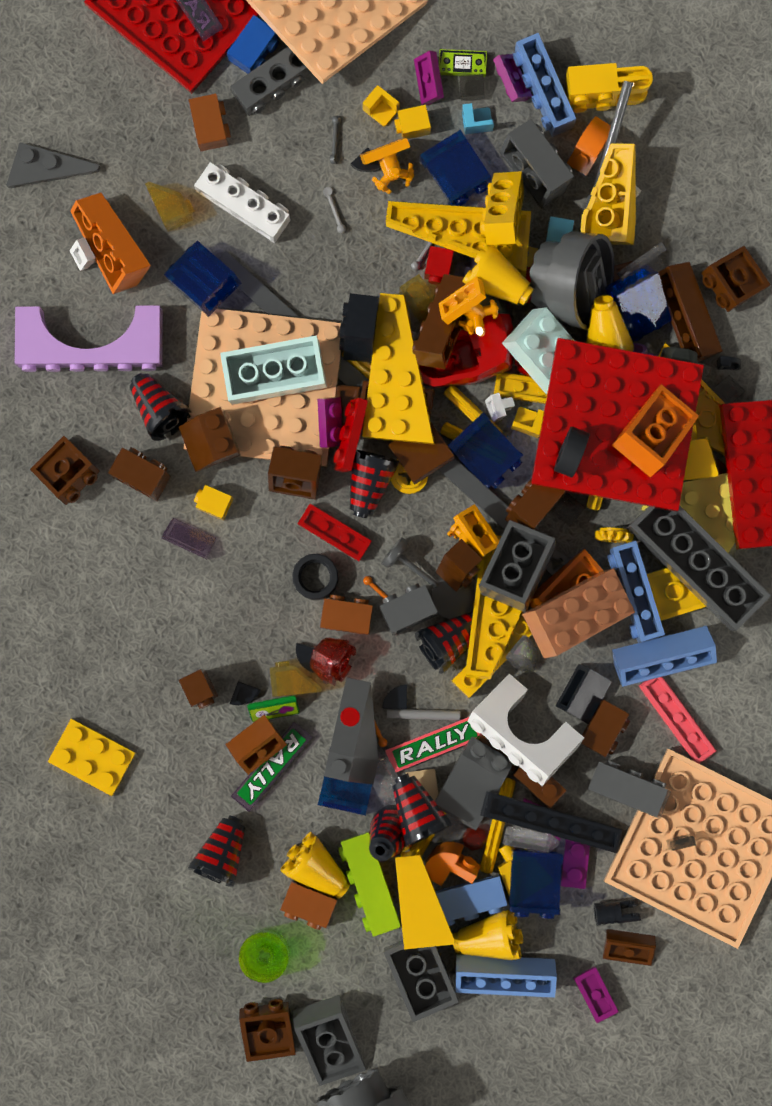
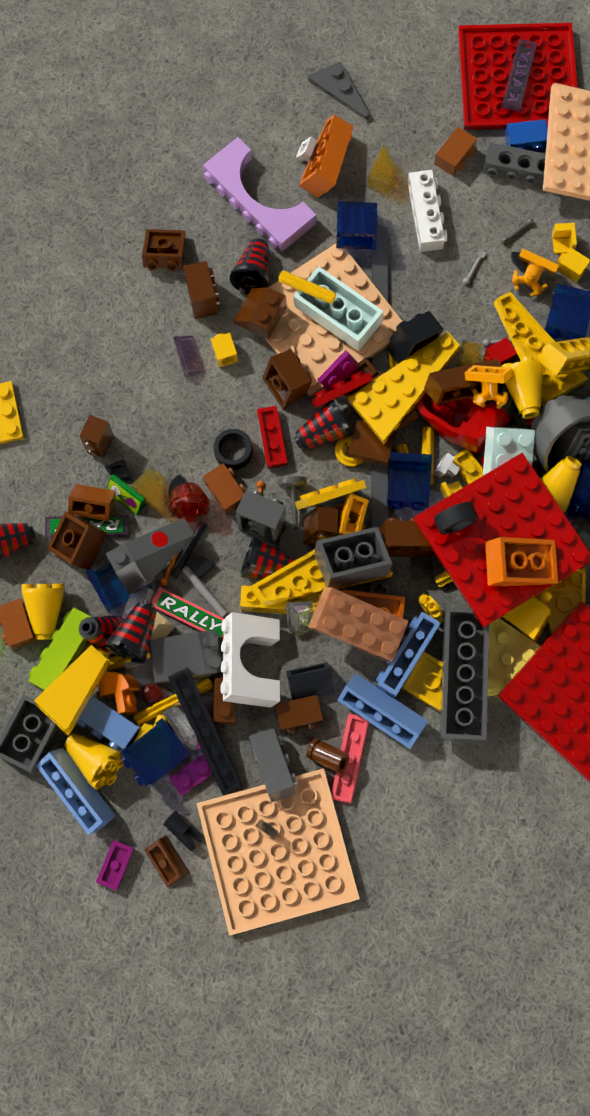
camera: 45 degrees right, 10 degrees down
(232, 382) = (307, 287): none -> yellow axle
(281, 788) = (77, 541): none -> reddish brown slope
(378, 711) = (188, 550): none -> black bar
(438, 531) = (330, 493): none -> yellow plate
(661, 736) = (327, 755): none -> reddish brown piece

